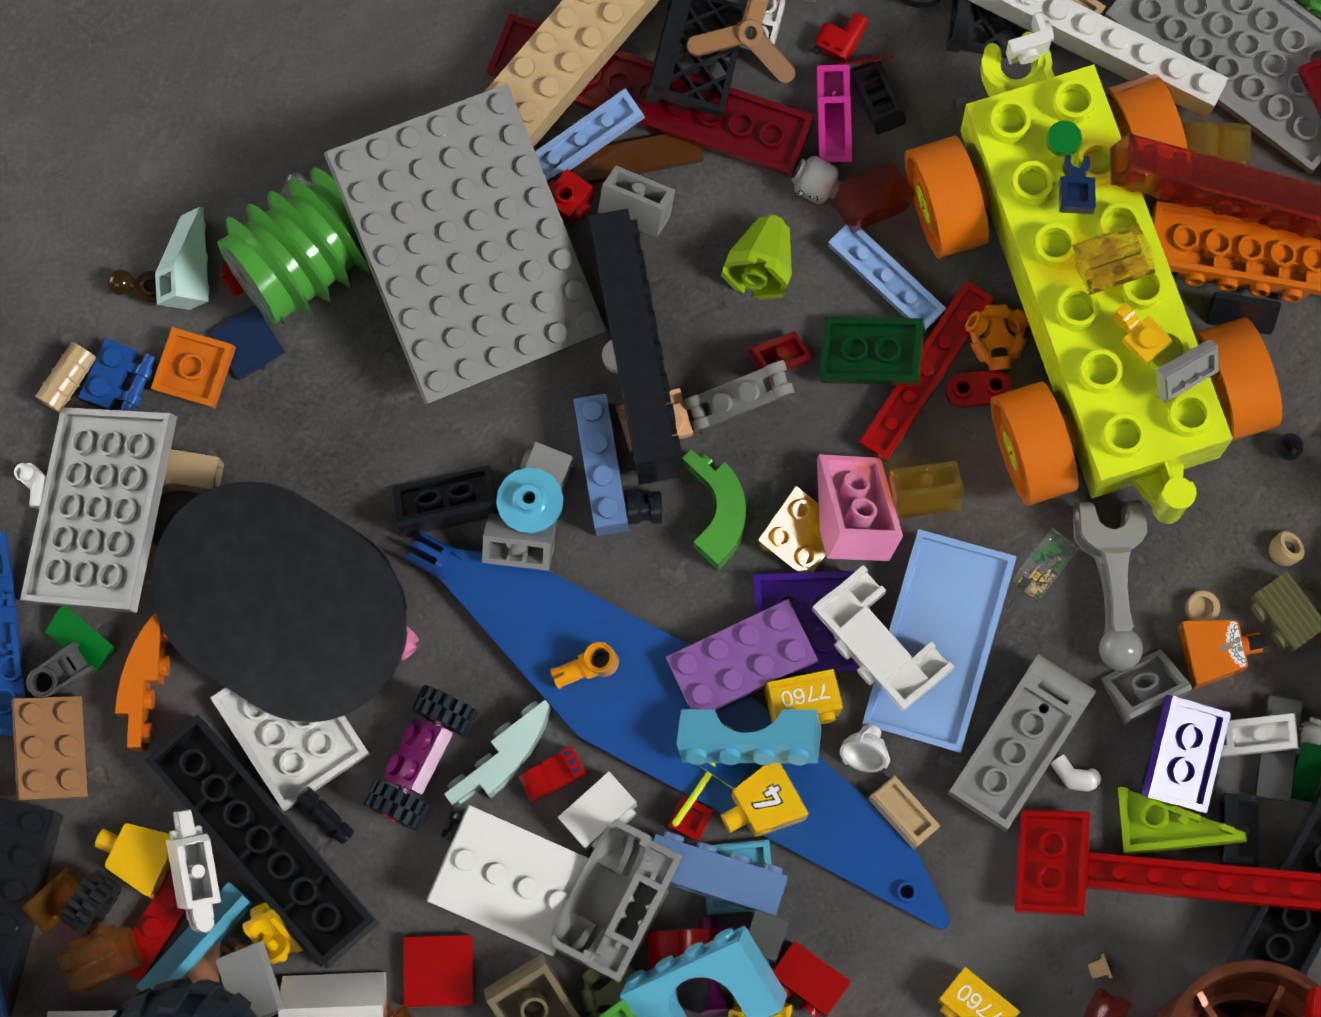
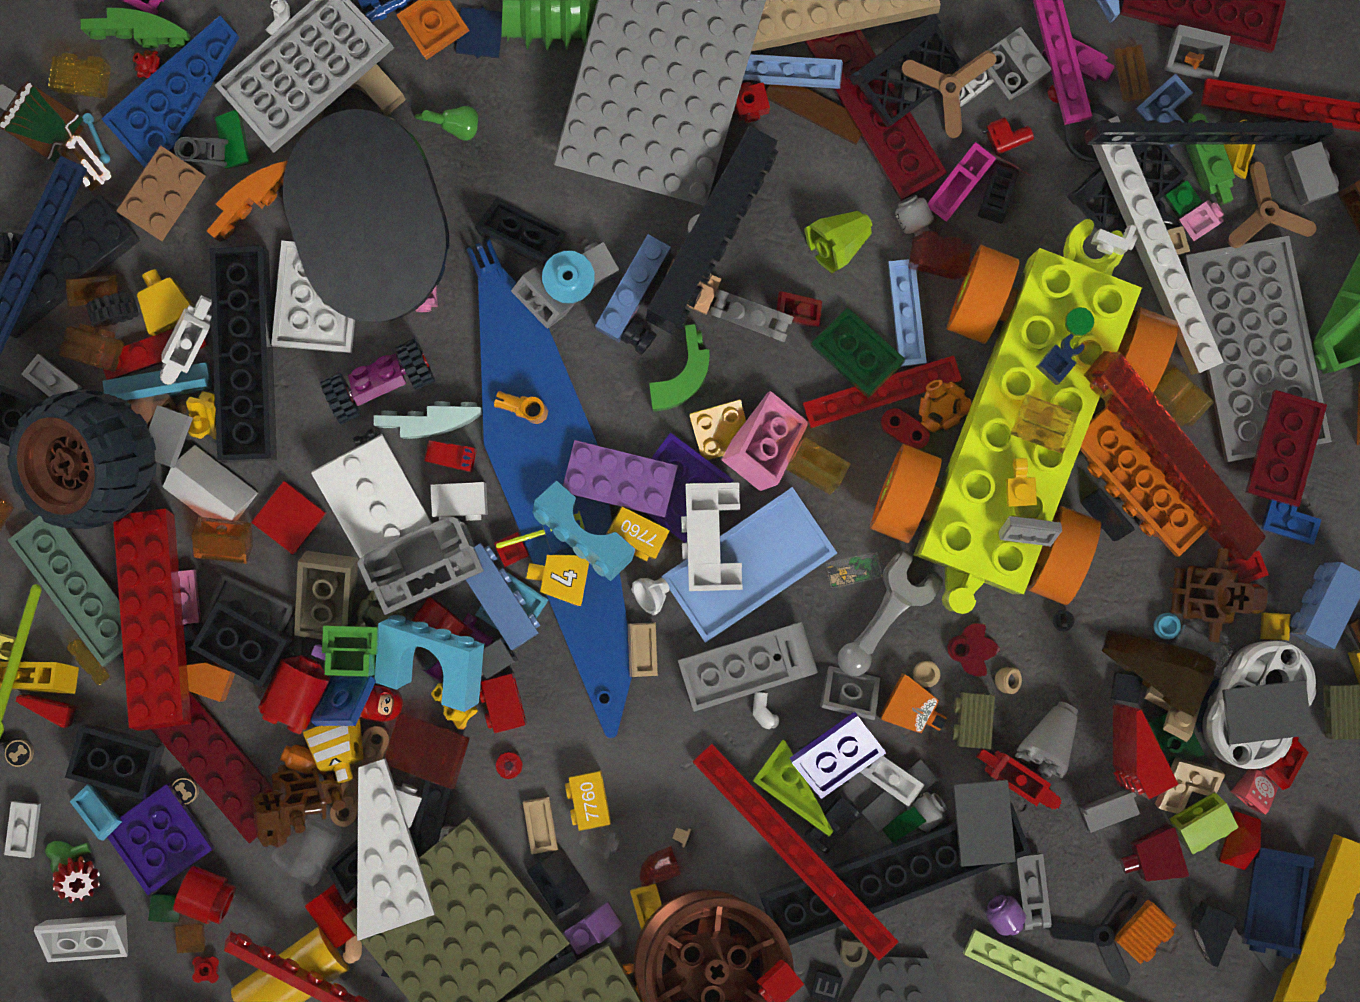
camera: 30 degrees right, 10 degrees up
(296, 442) = (460, 122): none -> bright green piece
(325, 815) = (294, 369): black axle -> none
(643, 197) = (794, 139): light grey brick -> none
(1053, 862) = (704, 752): red tile -> none
(1230, 544) = (976, 649): none -> dark red plate

